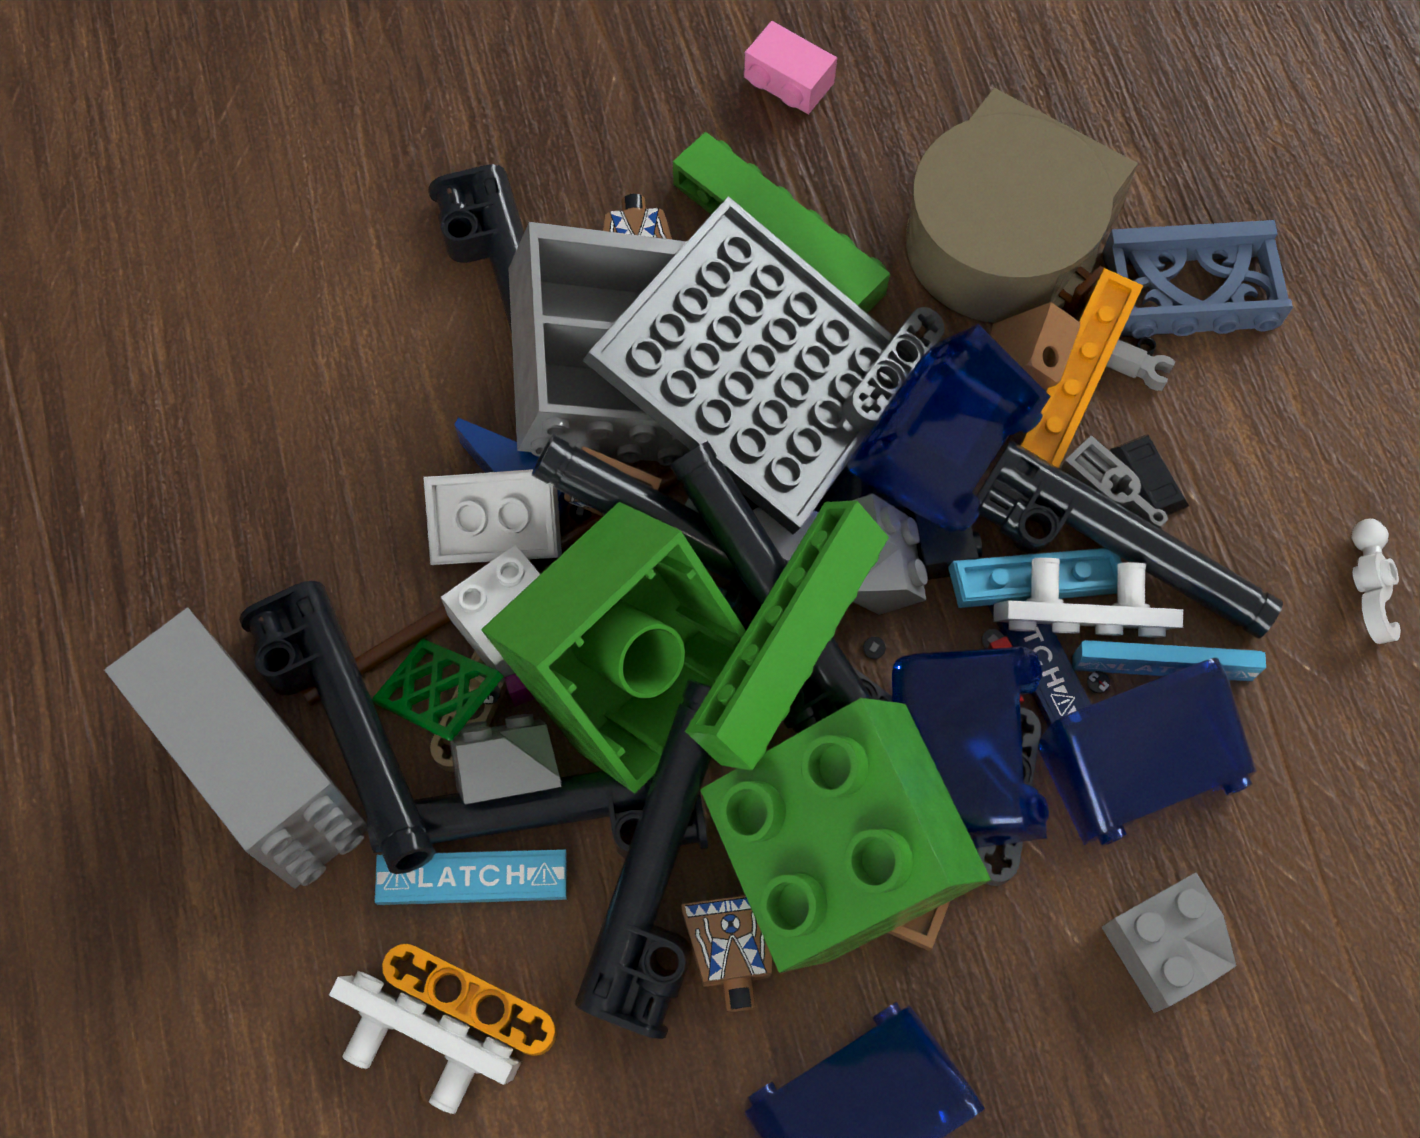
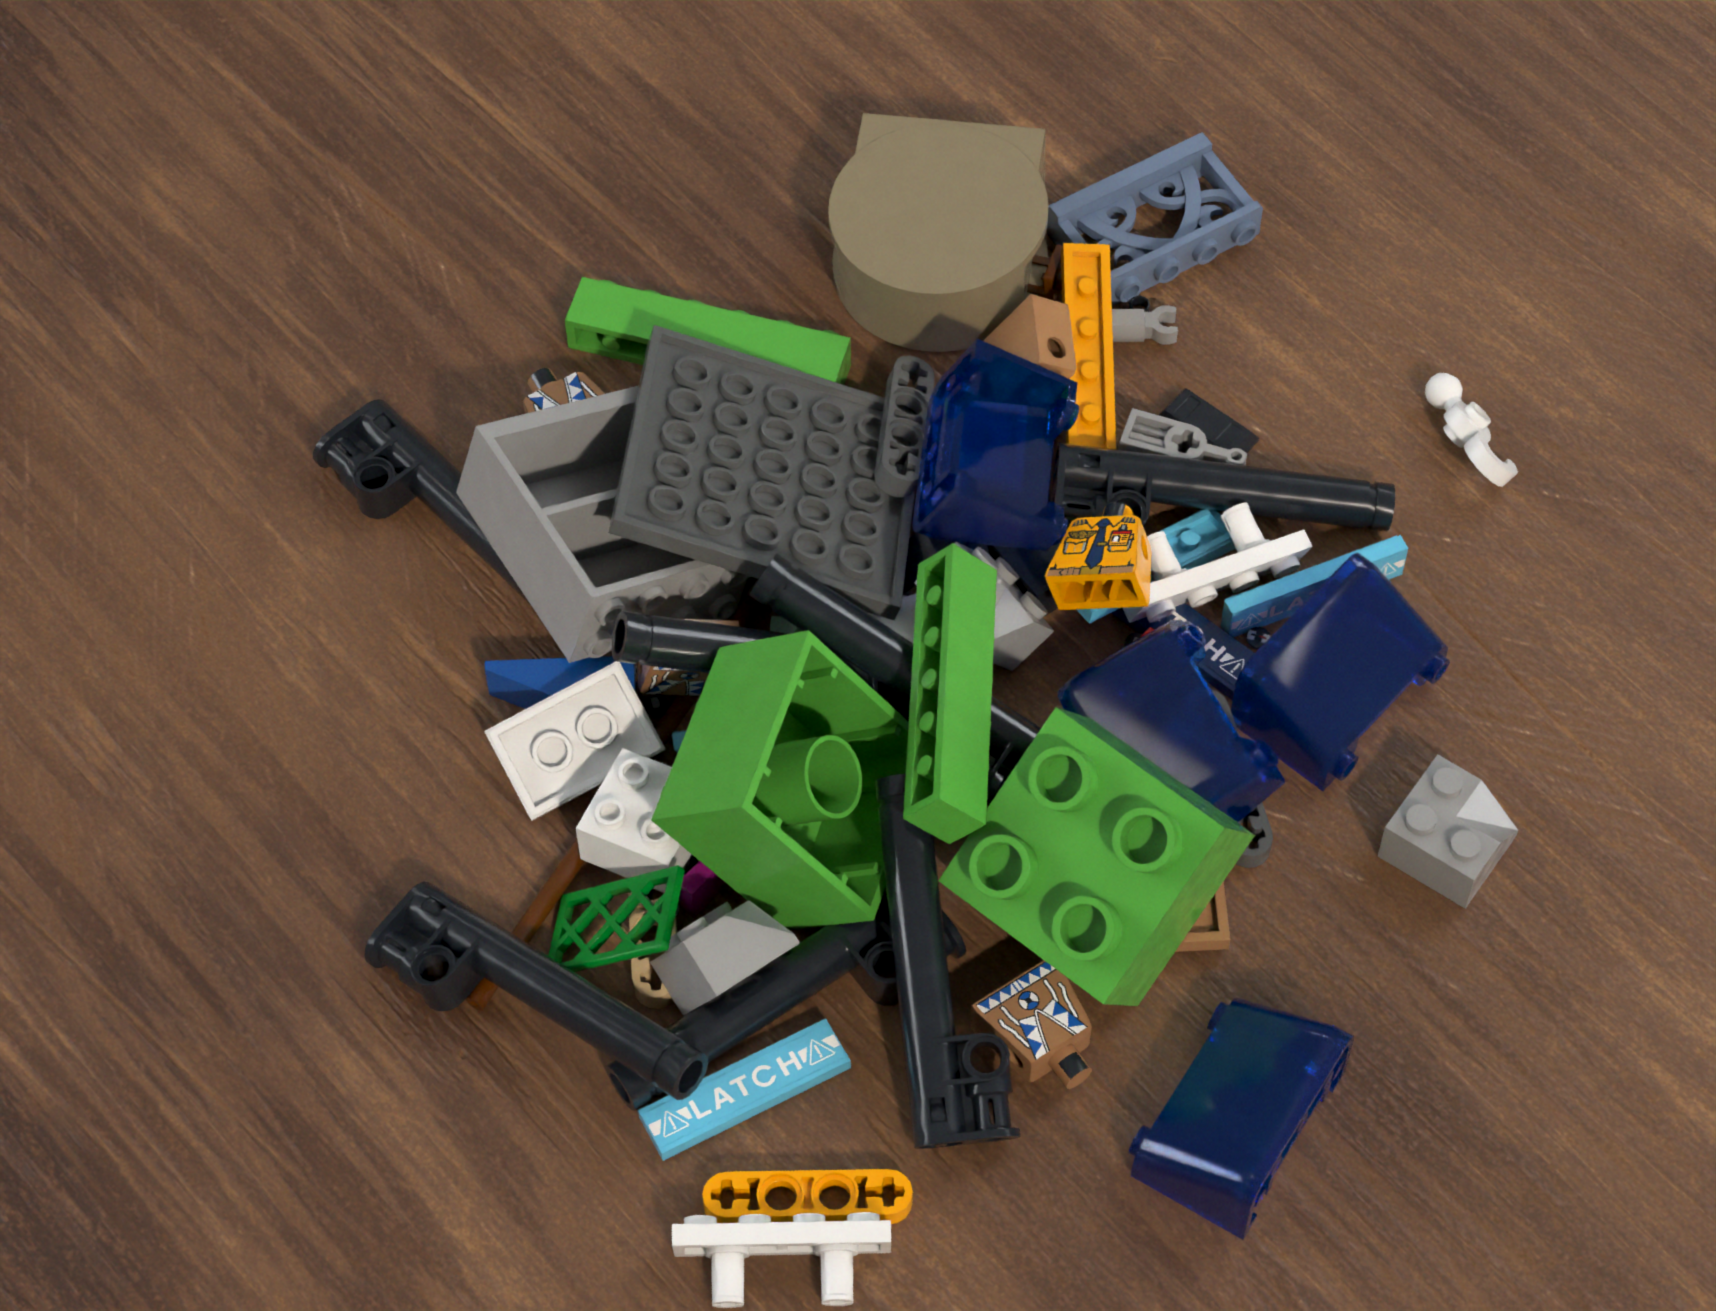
camera: 25 degrees left, 10 degrees down
(237, 751) = (464, 1050): light grey container -> none
(789, 67) = (631, 178): bright pink brick -> none
(874, 647) = (1025, 702): black piece -> none
(991, 565) = (1102, 562): none -> light orange torso

